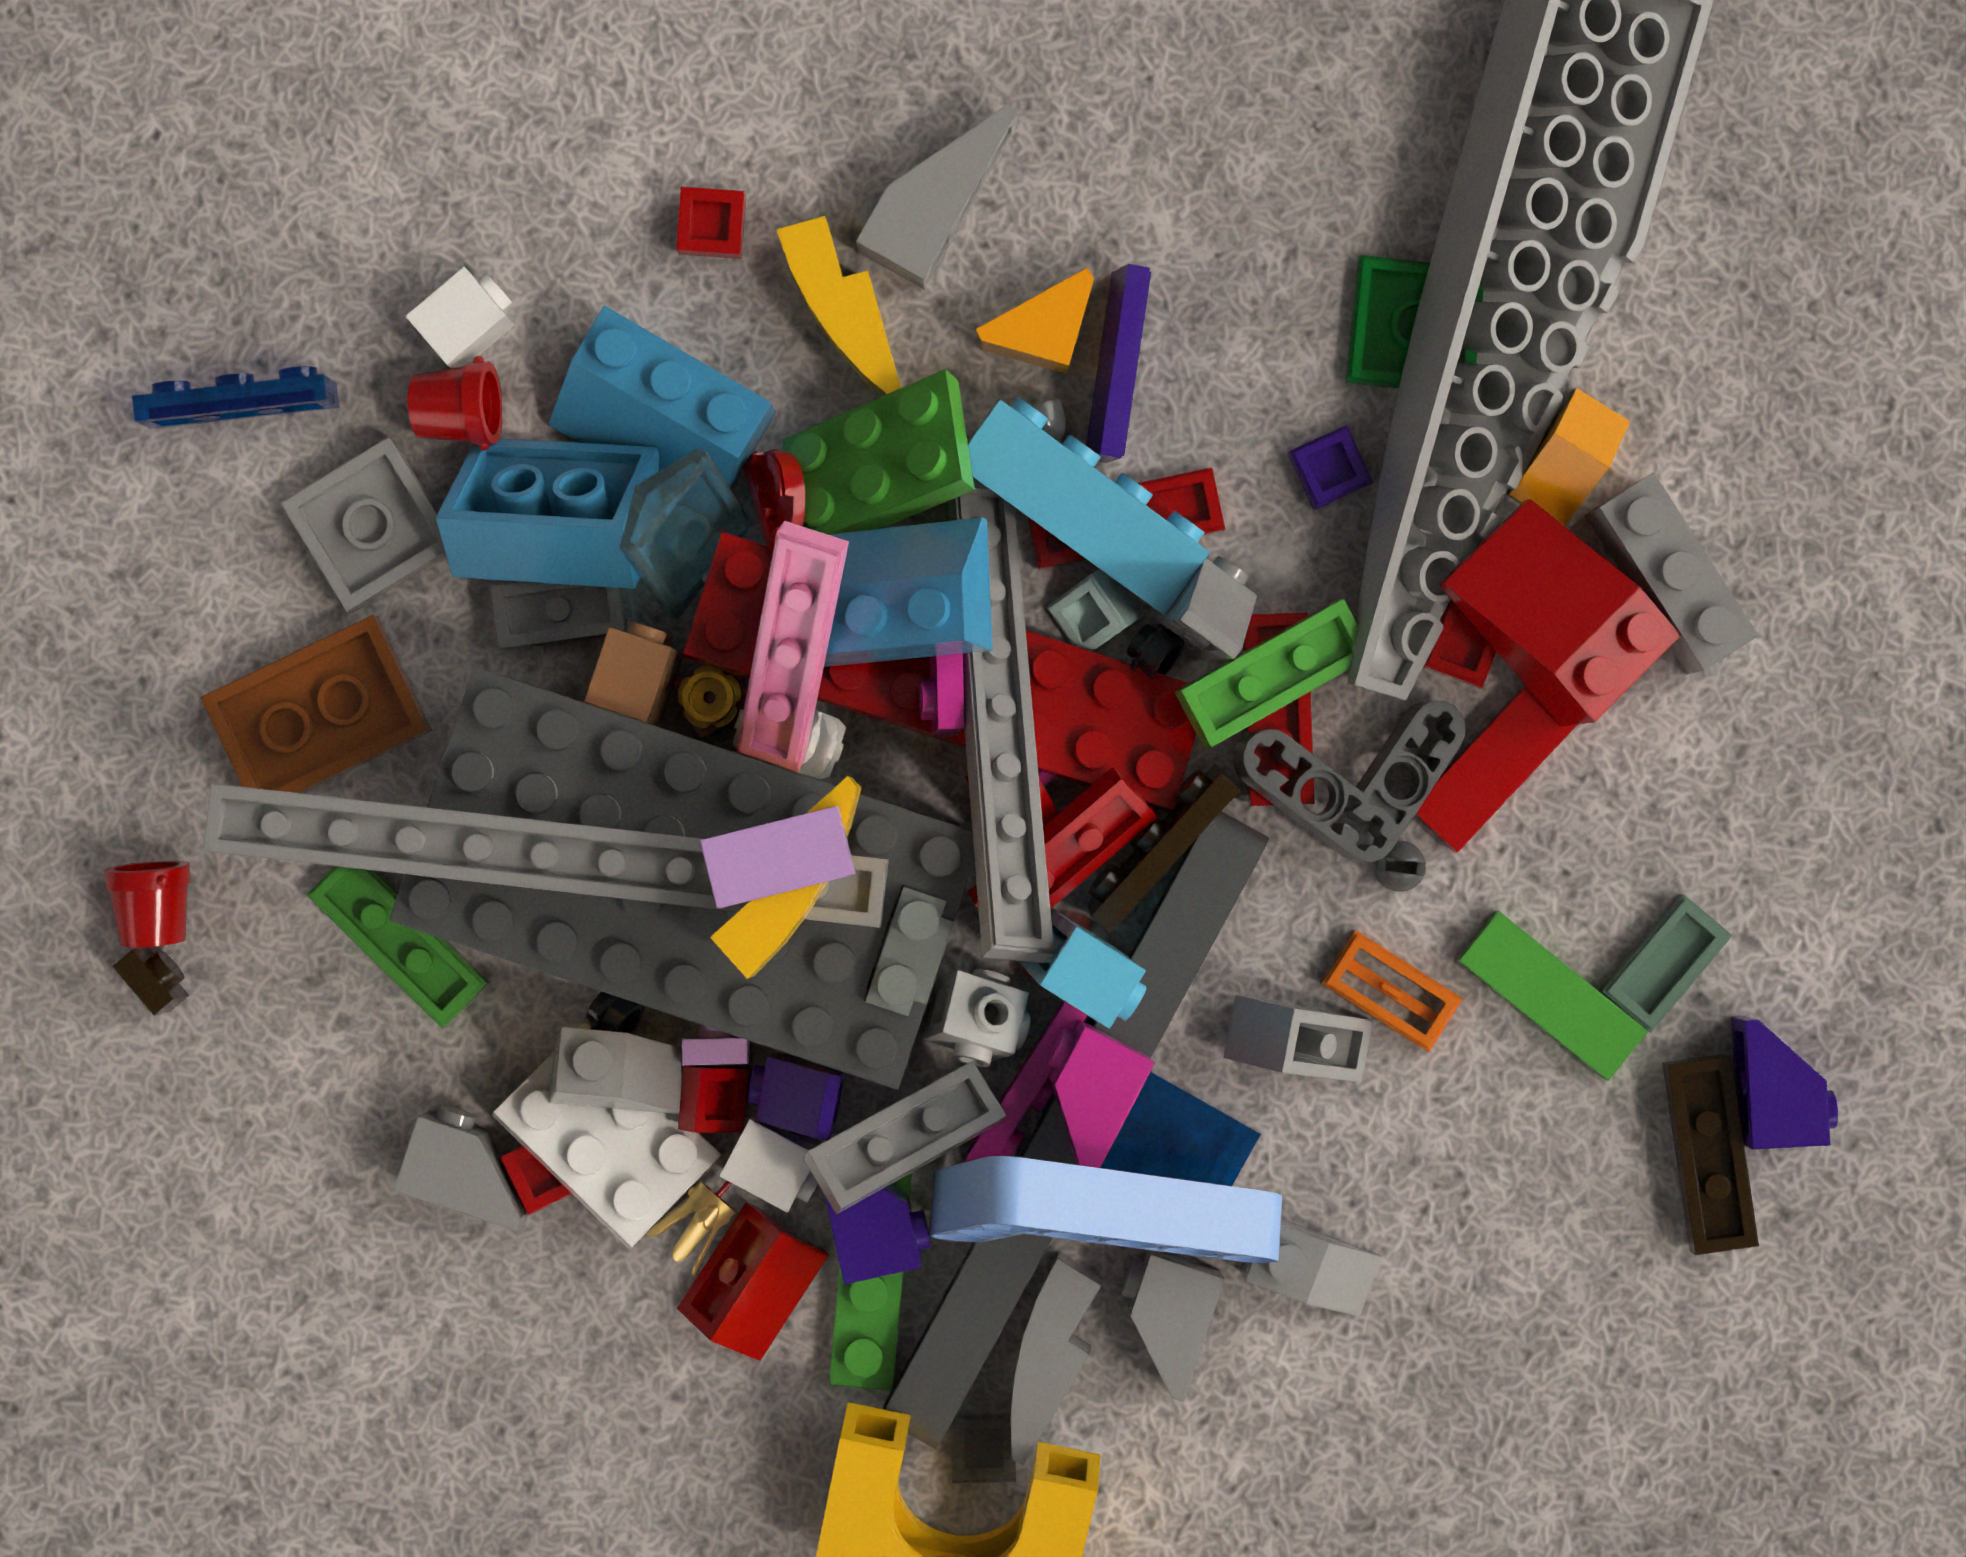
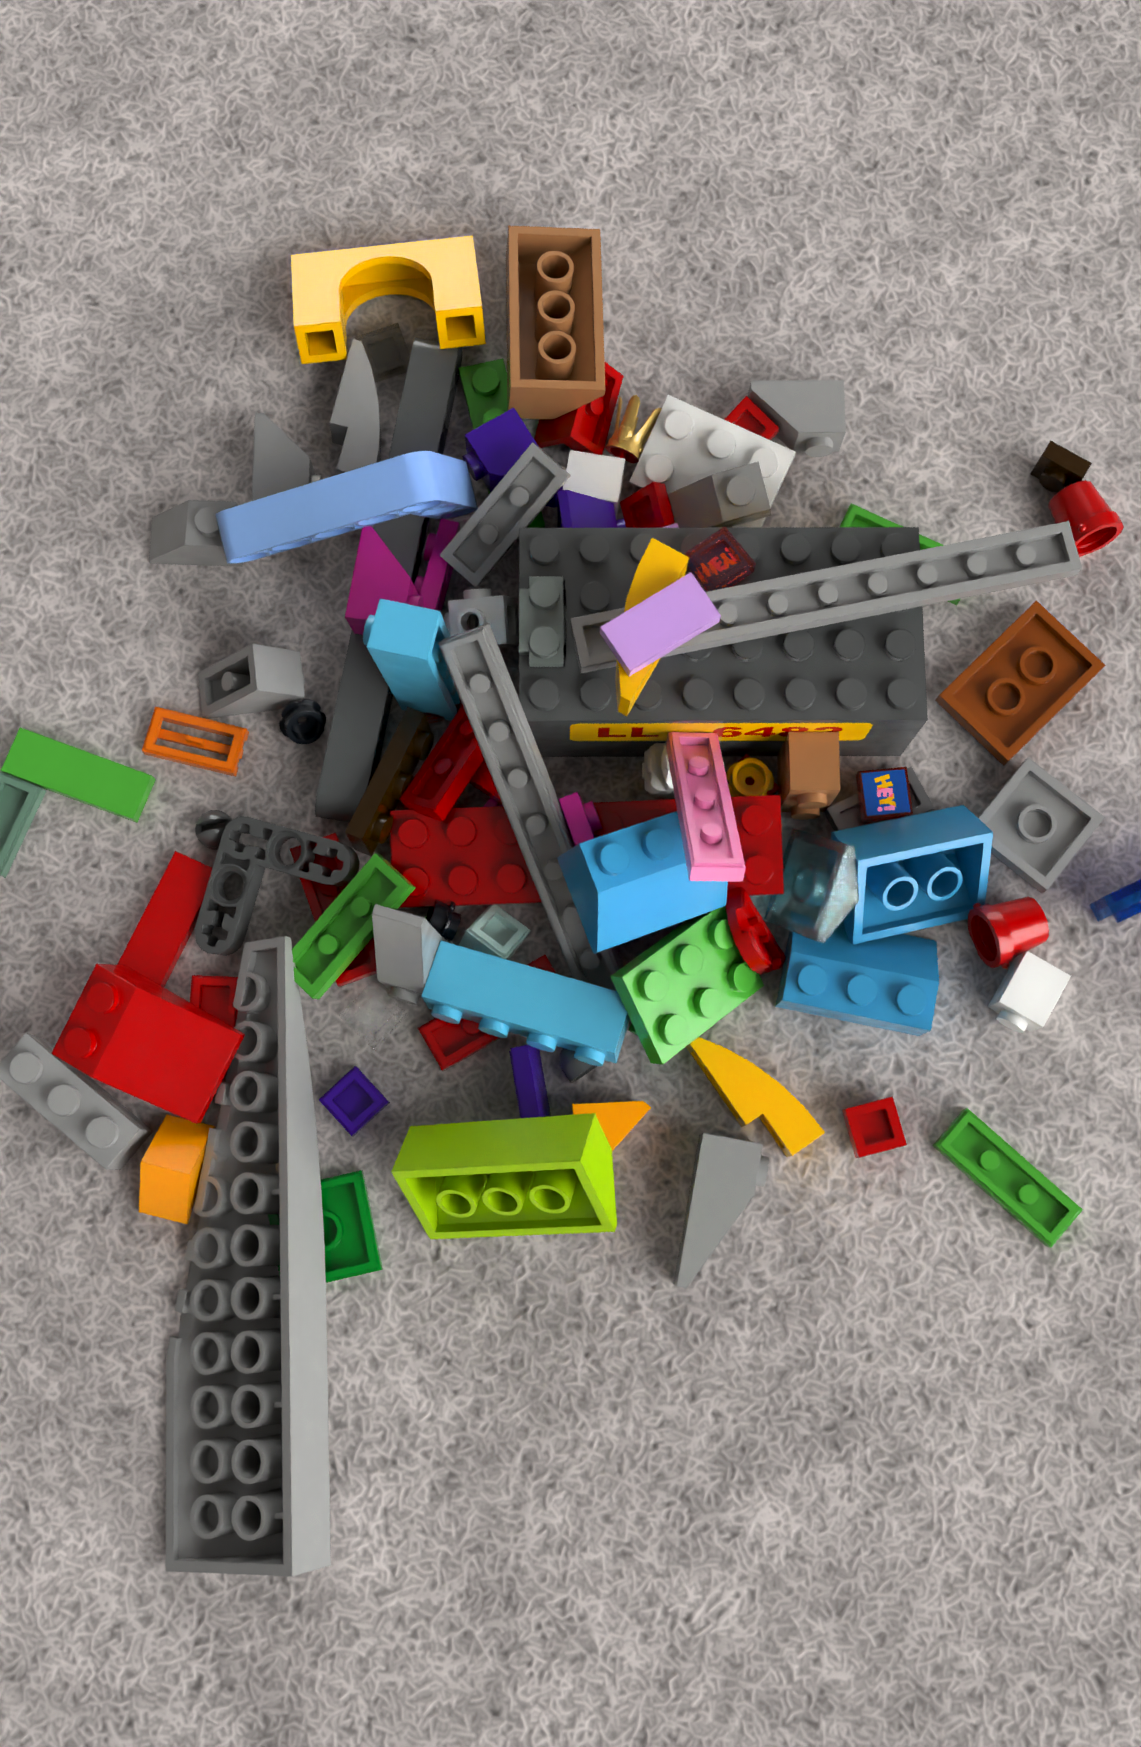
camera: 155 degrees right, 10 degrees down
(547, 621) = (884, 794): none -> tile
(571, 112) = (1007, 1177): none -> bright green tile
(663, 949) = (719, 561): none -> clear red tile
(746, 1403) = (553, 320): none -> medium nougat slope
(1174, 301) = (509, 1177): none -> lime slope
(1180, 1137) = (311, 585): clear blue tile -> none
(1247, 967) = (308, 730): none -> black plate

